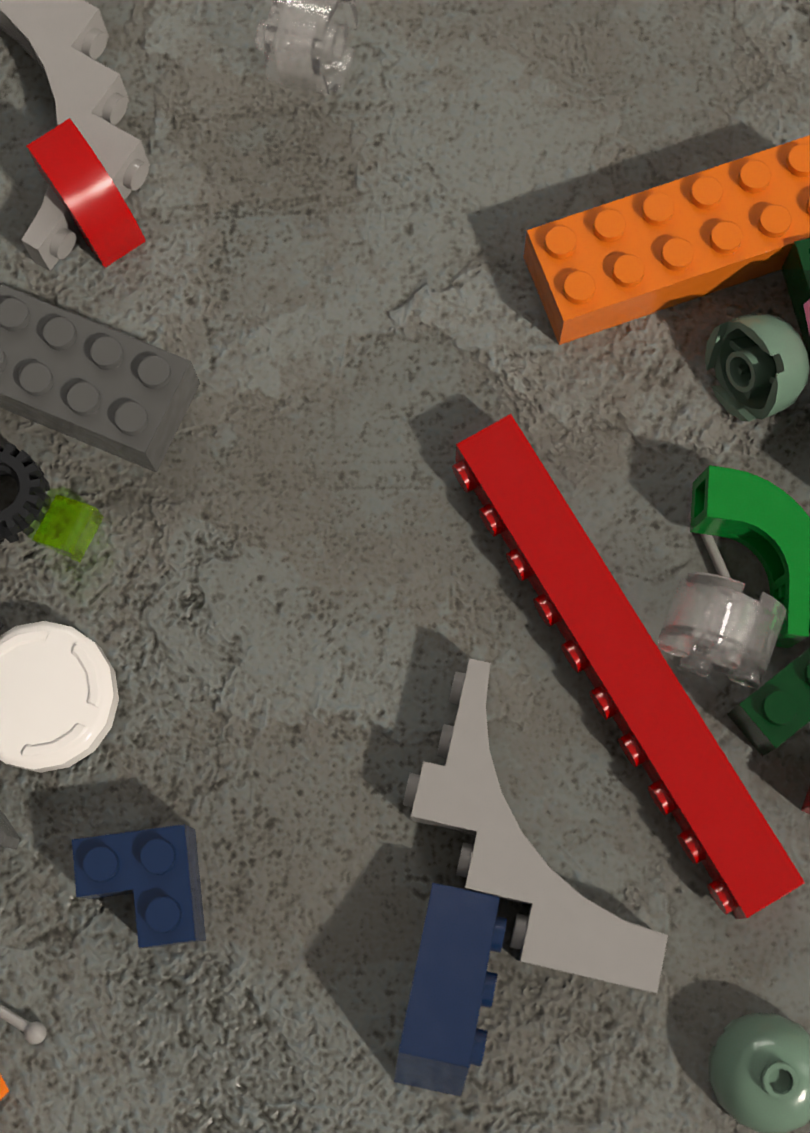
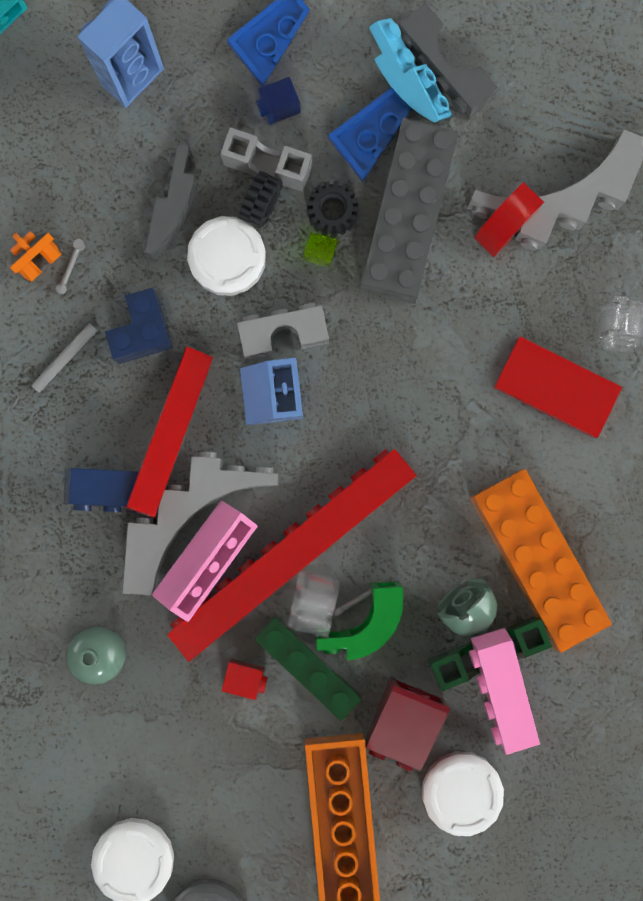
camera: 75 degrees right, 10 degrees up
(173, 1048) = (64, 357): none -> light grey bar
(201, 568) = (306, 323): none -> light grey arch
(313, 649) = (271, 392): none -> medium blue slope
(360, 854) = (169, 432): none -> red tile
(391, 172) = (557, 387): none -> red tile
(614, 823) = (204, 560): none -> bright pink brick

